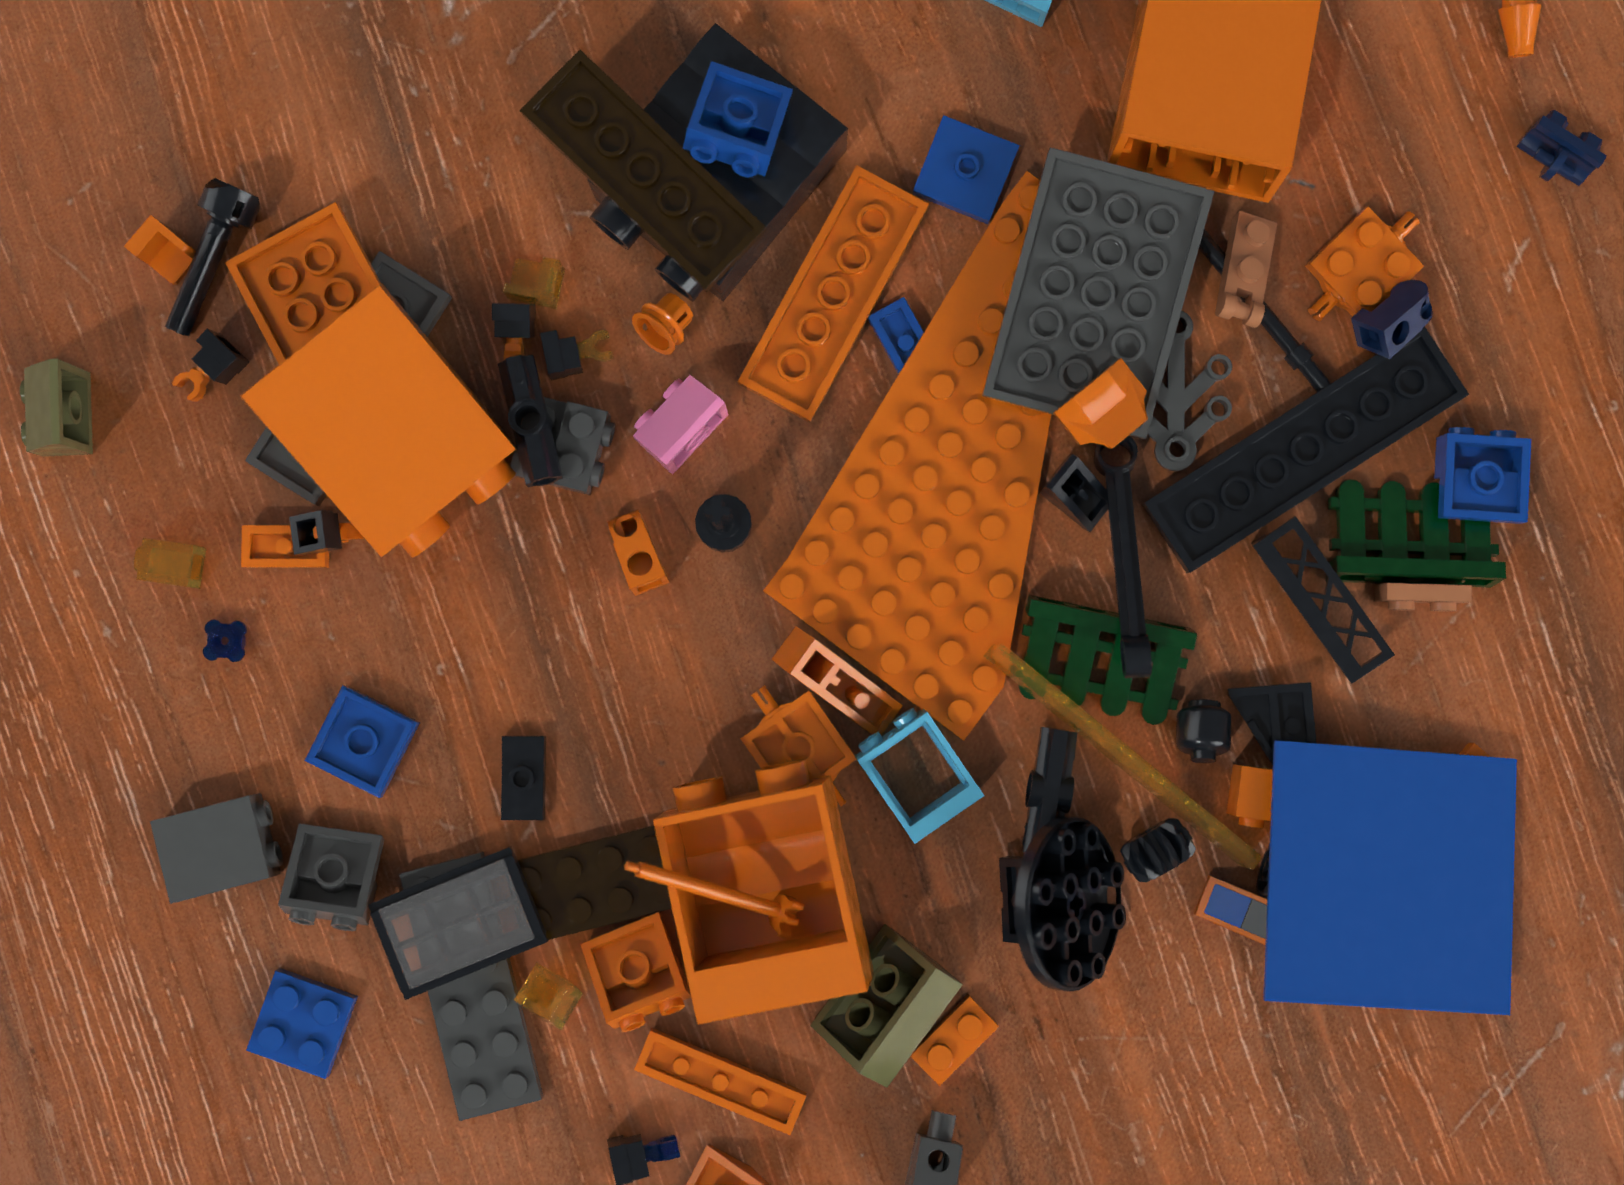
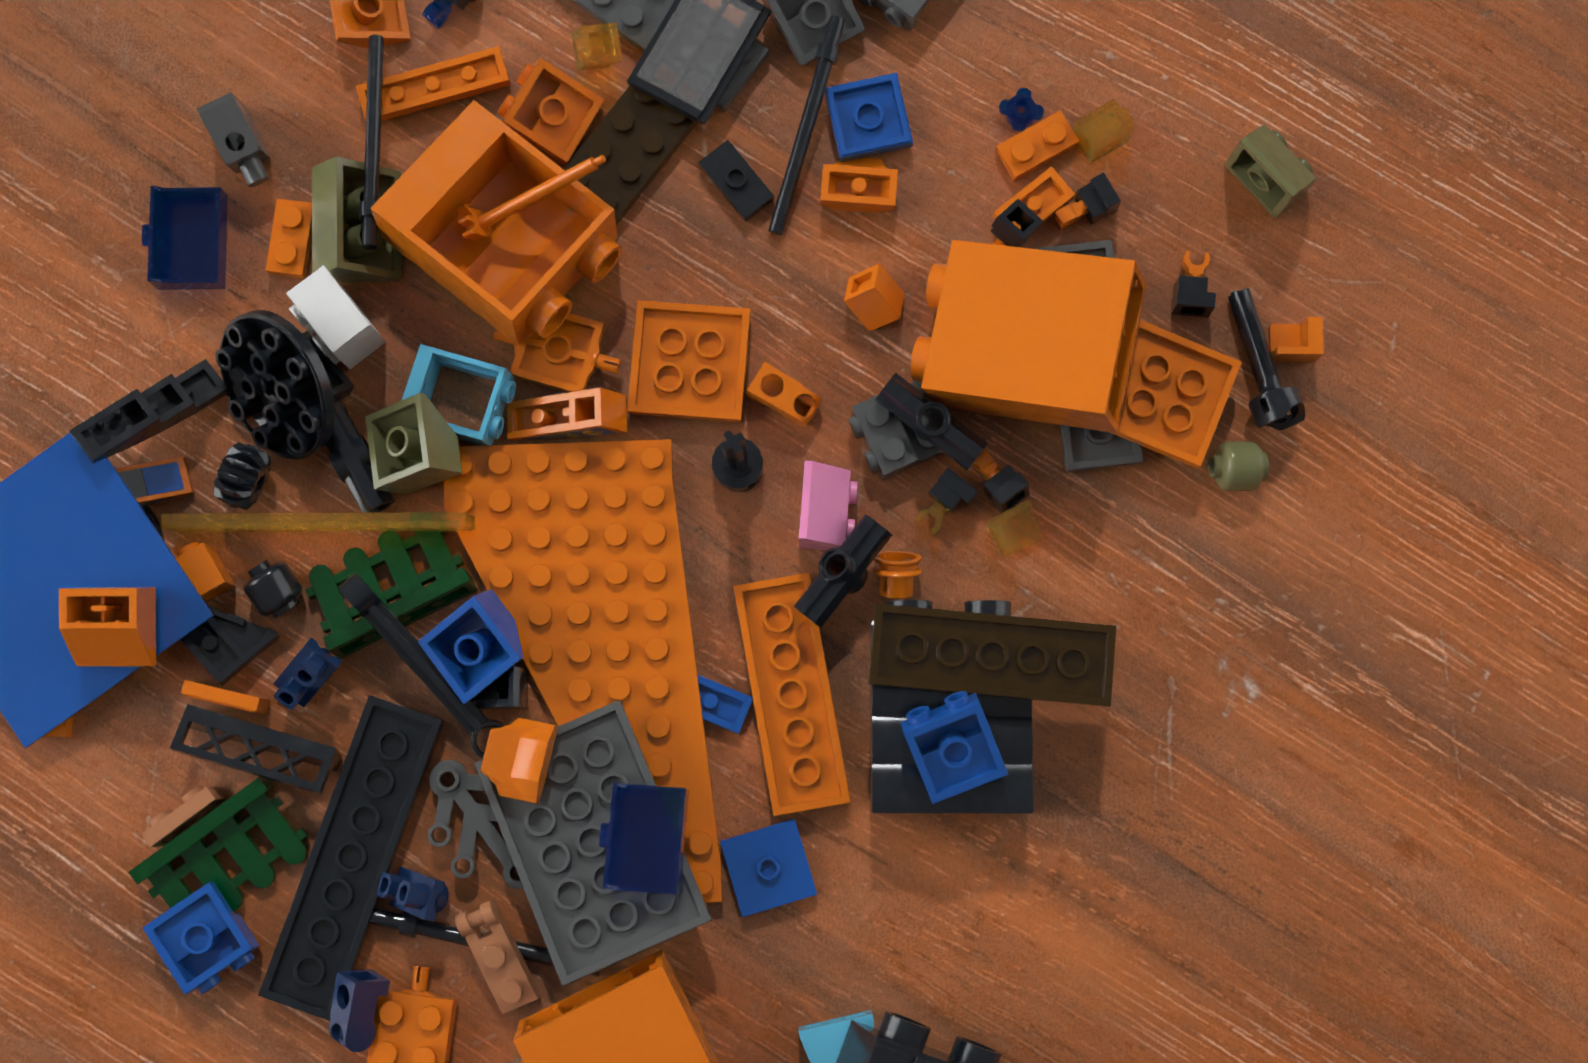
camera: 145 degrees right, 5 degrees down
(233, 507) = (1094, 200): none -> black piece
(238, 599) = (1037, 145): none -> orange plate
(303, 182) = (1238, 466): none -> olive head
(353, 822) = (826, 55): none -> black bar
(419, 685) = (859, 186): none -> orange slope
(489, 575) = (874, 297): none -> orange panel
(692, 647) = (689, 361): none -> orange plate
(735, 349) = (843, 570): none -> black piece
(863, 1004) = (372, 142): none -> black bar
(972, 927) = (331, 313): none -> white brick
(992, 757) = (411, 446): none -> olive slope
(1046, 1113) = (186, 238): none -> clear blue container
(1053, 253) = (645, 839): none -> clear blue container
(1069, 538) = (474, 645): none -> blue slope
(1198, 970) = (149, 412): none -> black slope
(1232, 631) = (305, 675): none -> dark blue hips
(1277, 375) = (414, 892): none -> dark blue hips
(1313, 668) = (225, 697): none -> orange tile
(1370, 799) = (109, 625): none -> orange slope

